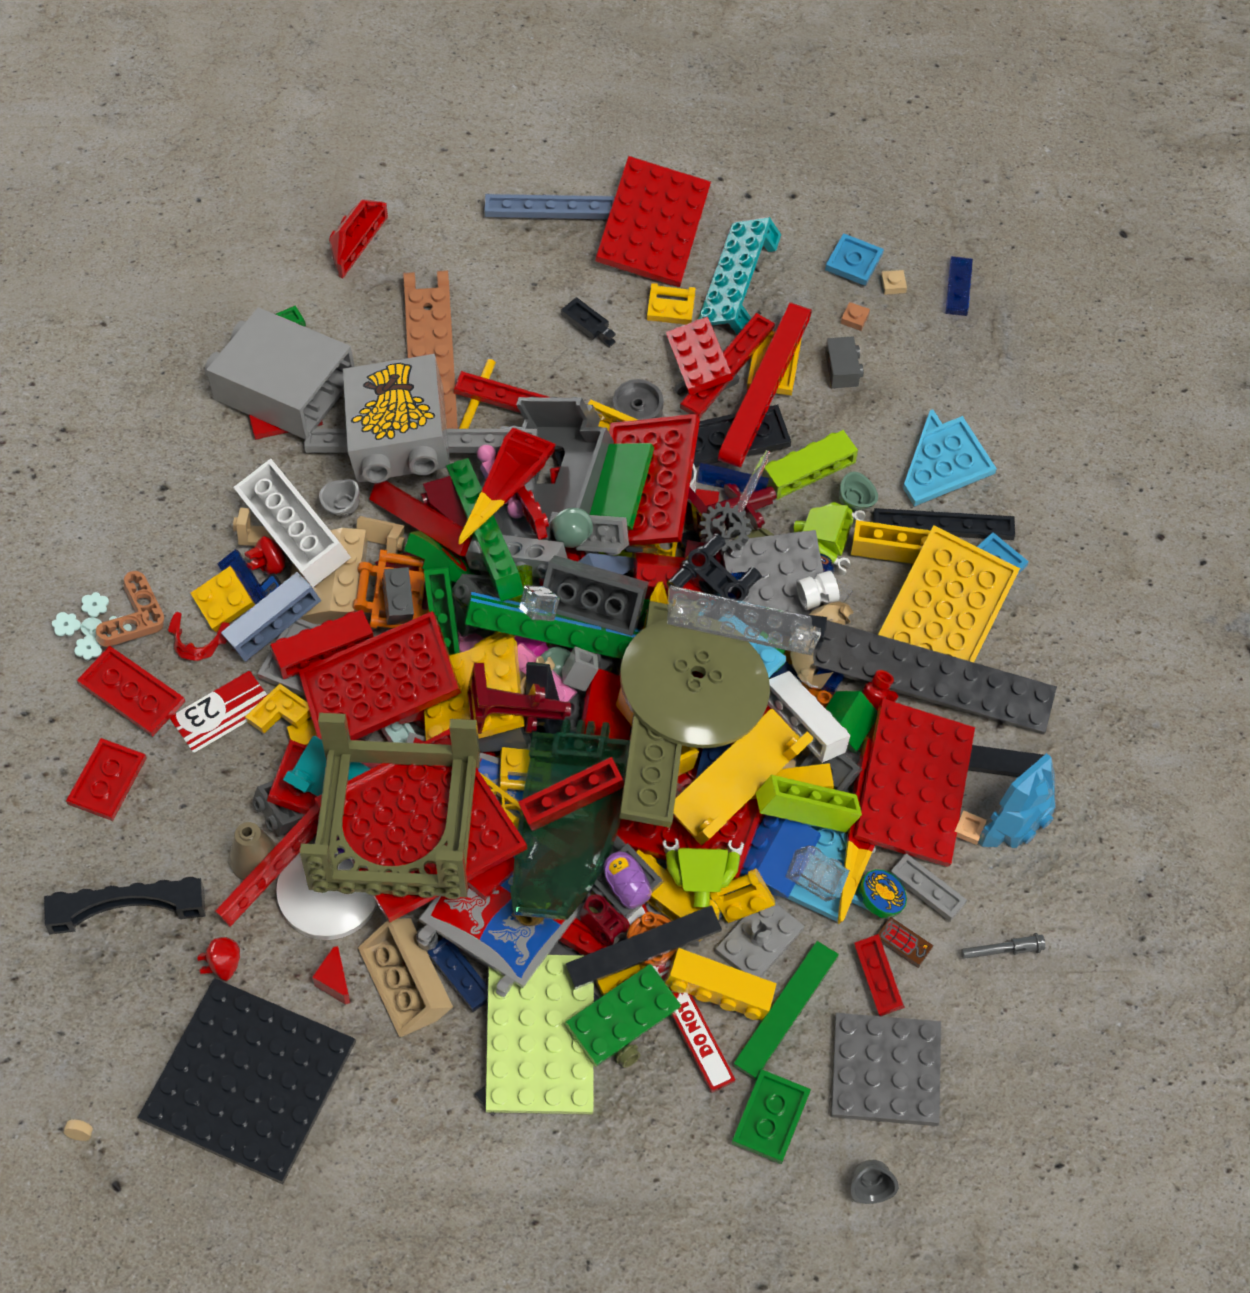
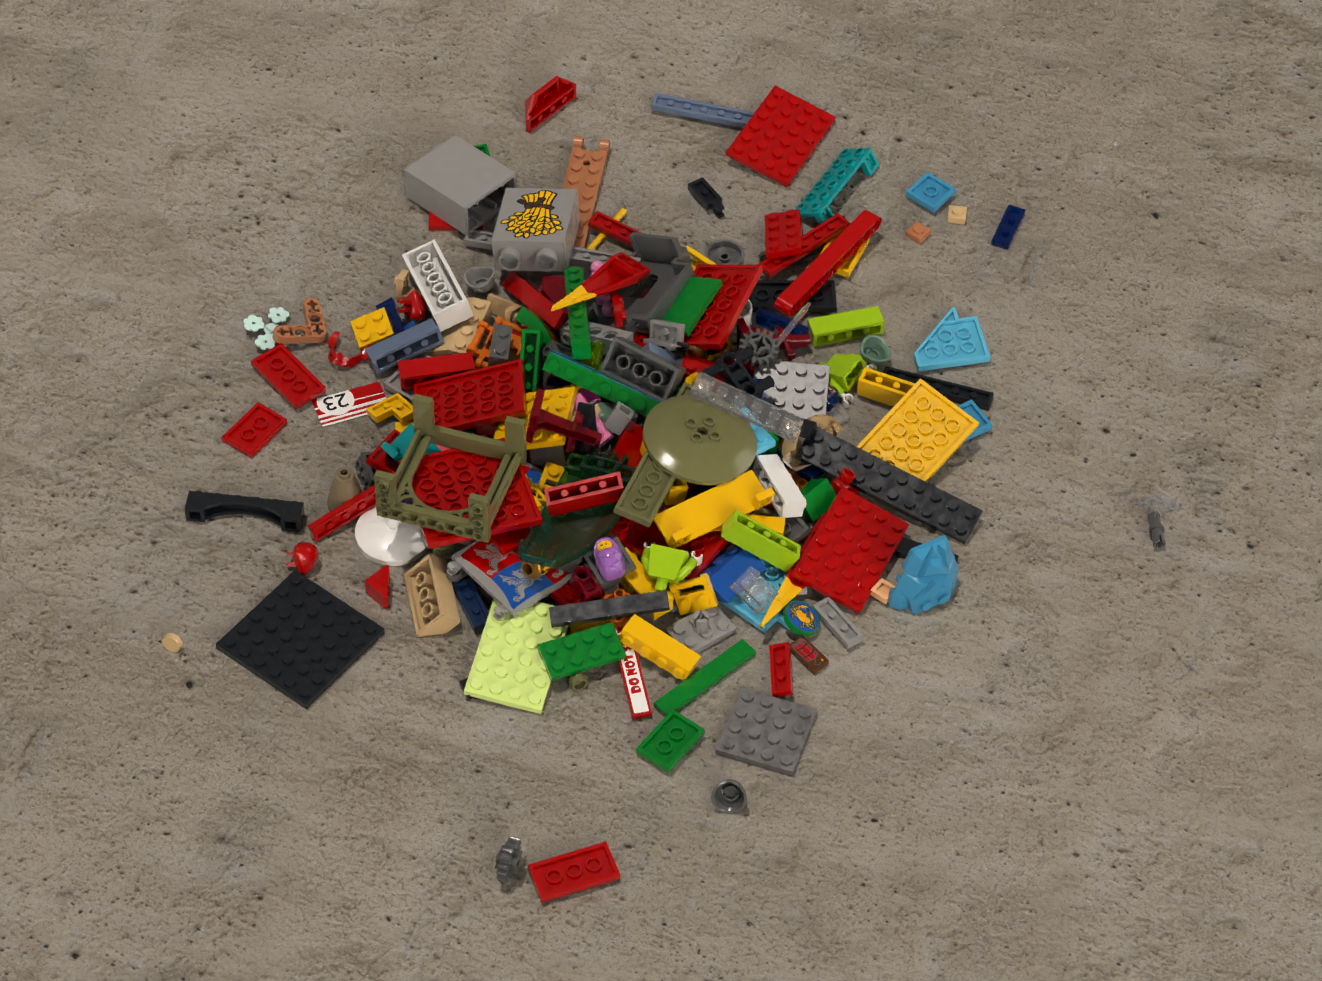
camera: 15 degrees right, 10 degrees down
(539, 603) = (600, 364): clear brick -> none
(572, 527) = (643, 324): sand green helmet -> none
(671, 310) = (774, 201): yellow plate -> none
(817, 590) = (816, 404): white wheel -> none
(843, 362) = (896, 261): dark grey brick -> none
(1017, 946) = (892, 674): dark grey pin -> none

